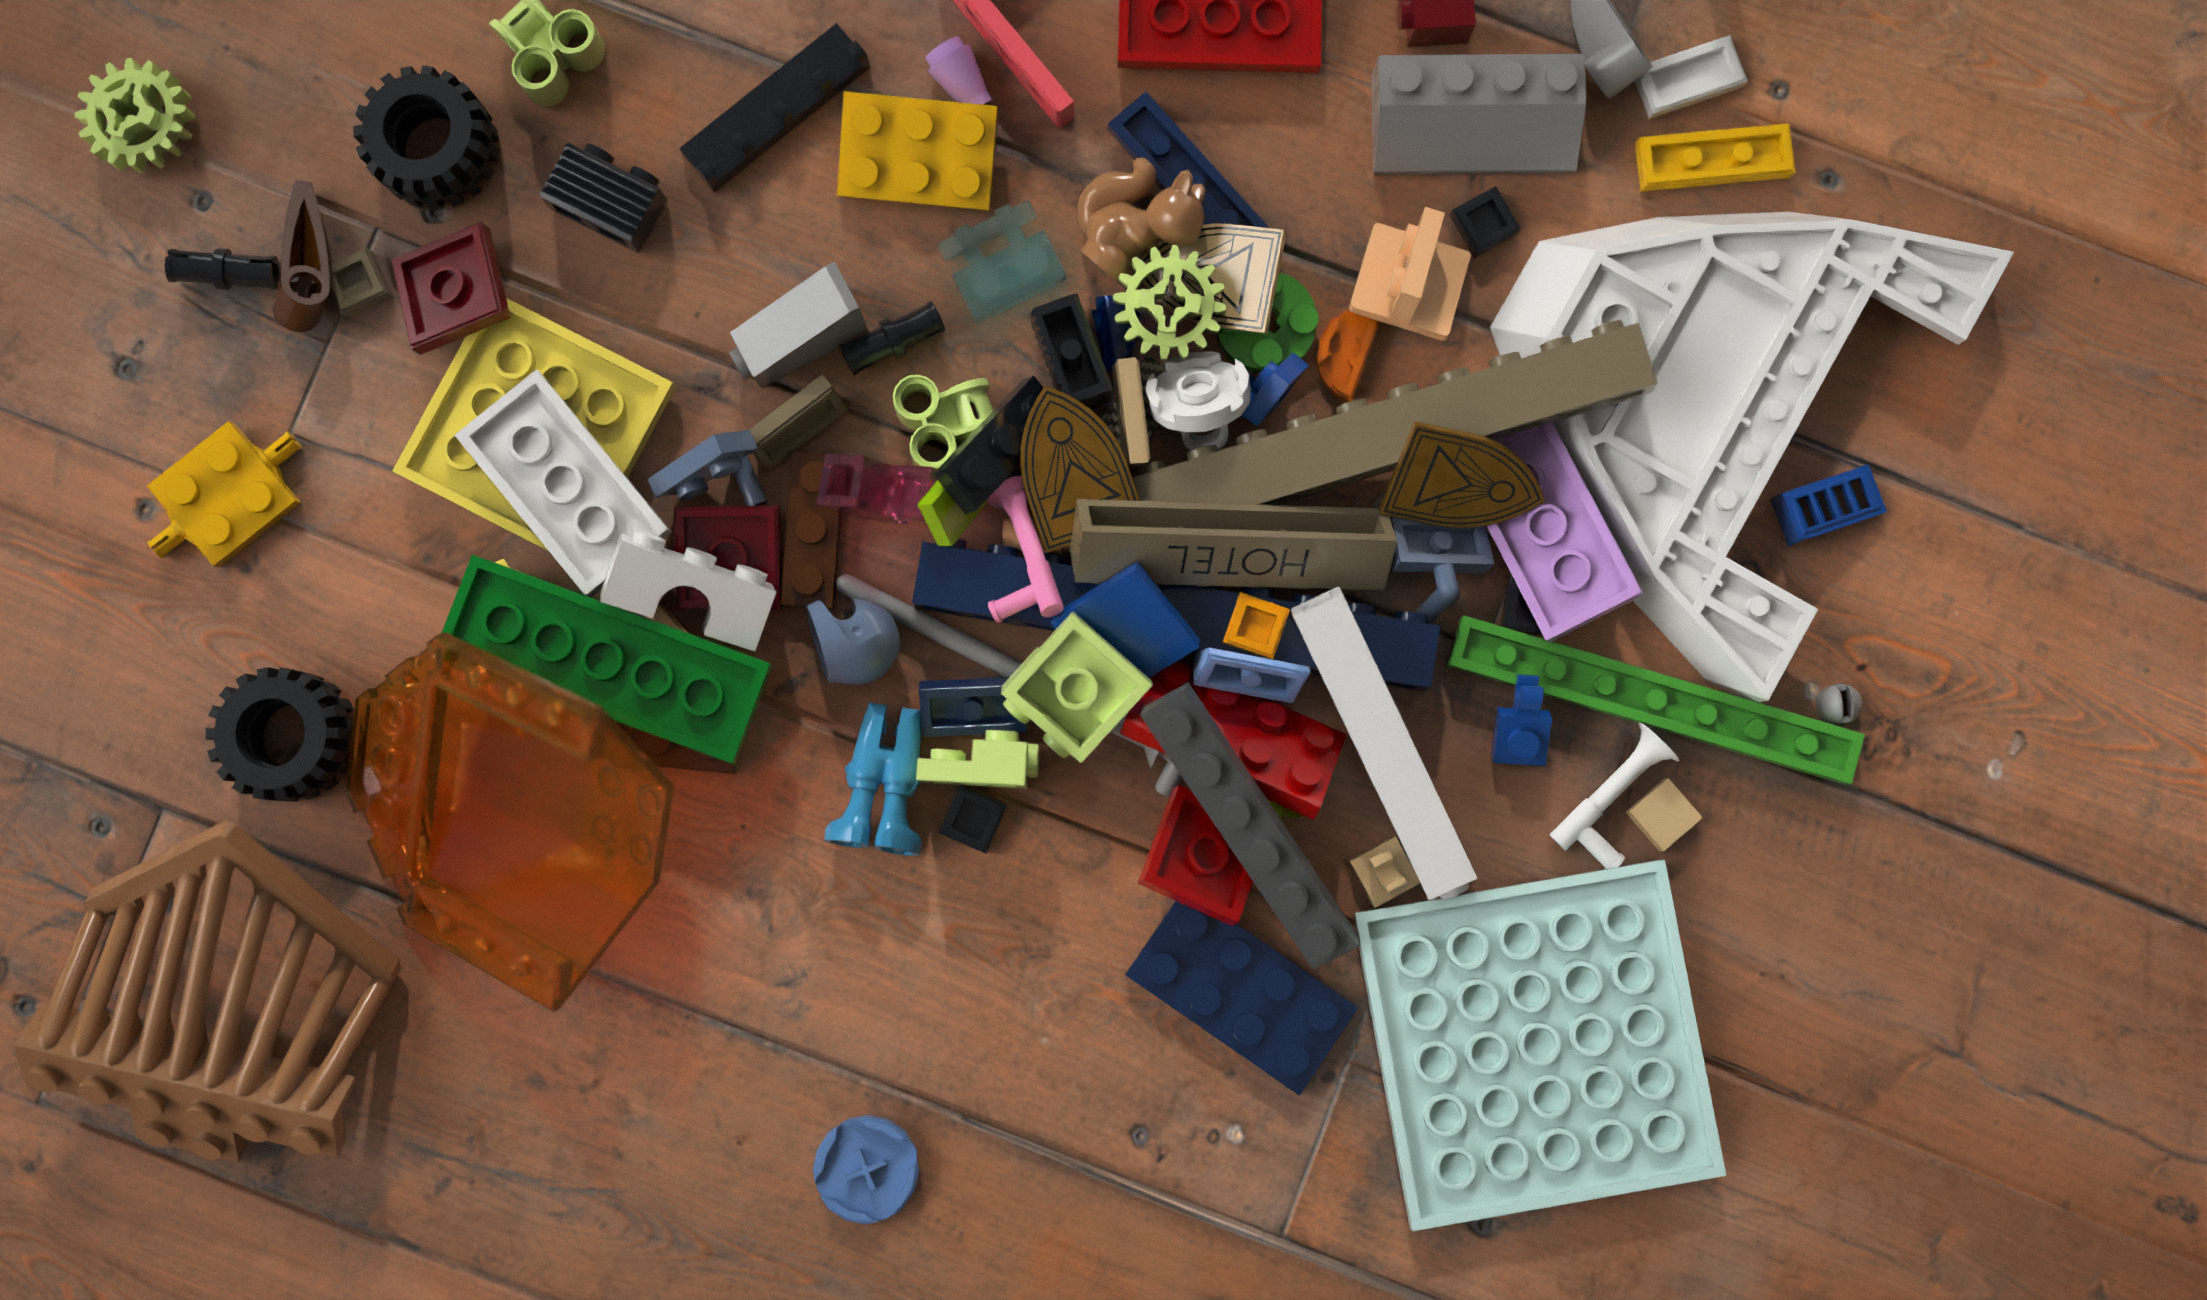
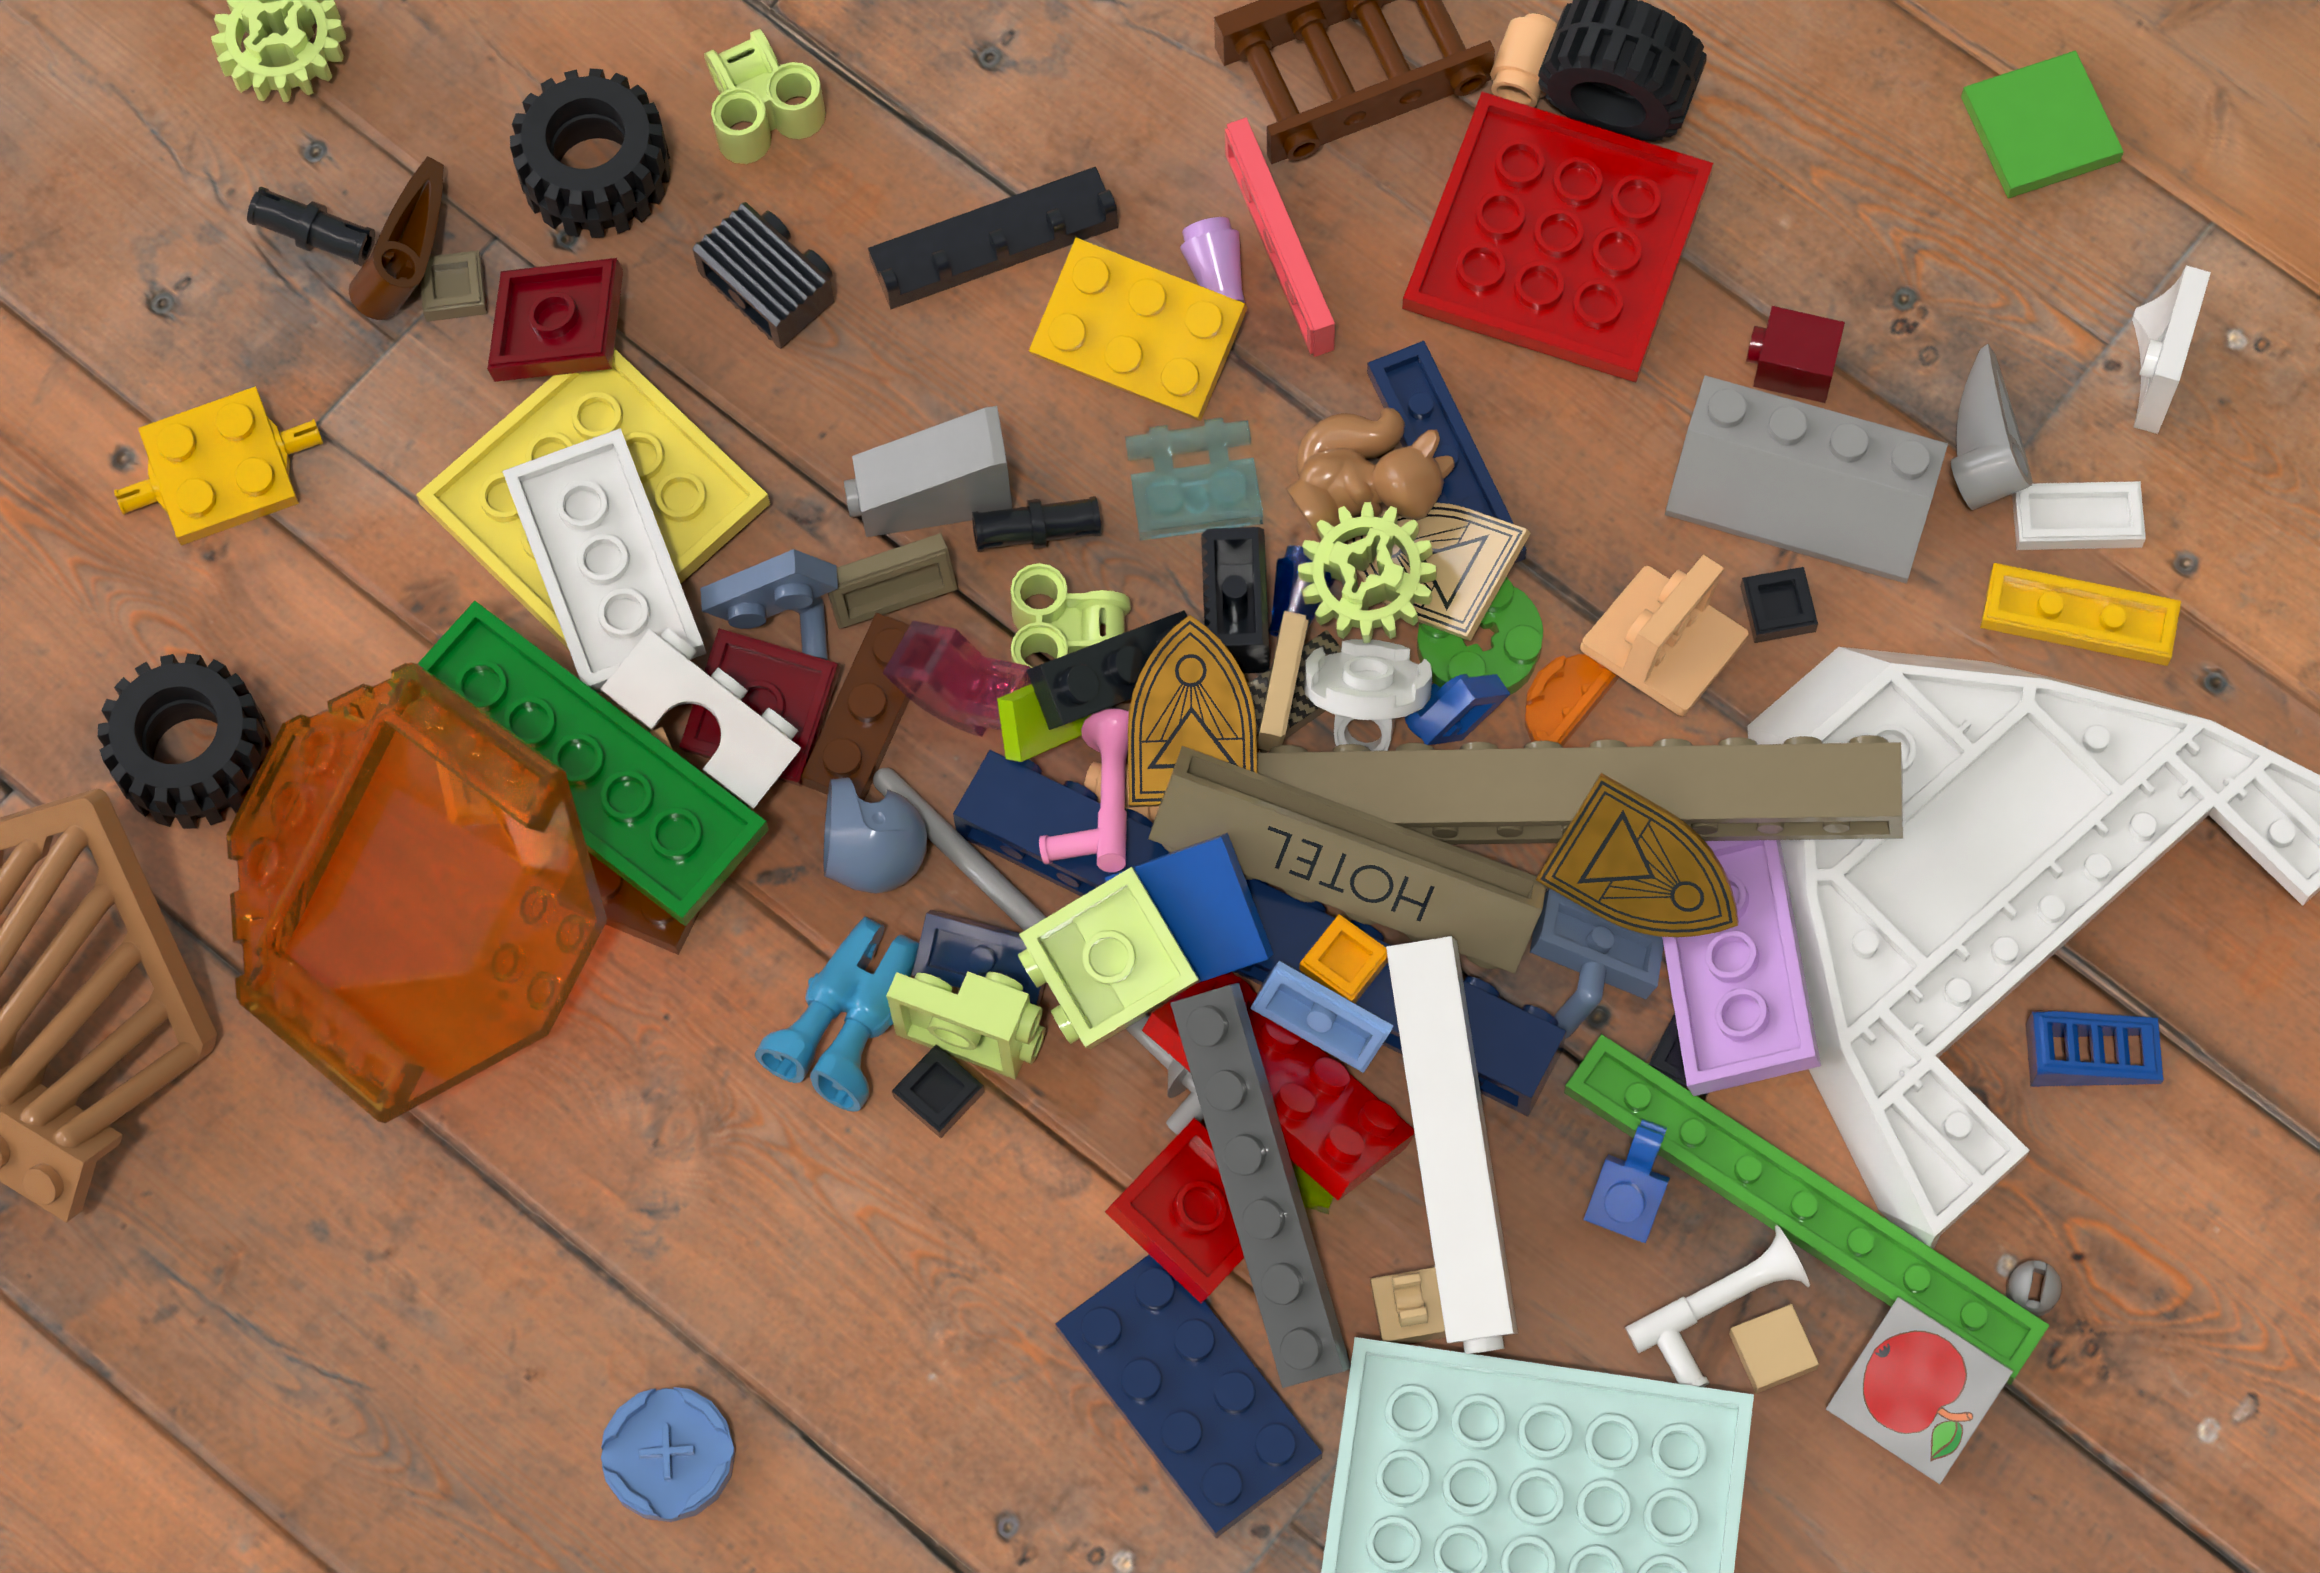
camera: 25 degrees right, 15 degrees down
(1784, 814) = (1919, 1390): none -> tile

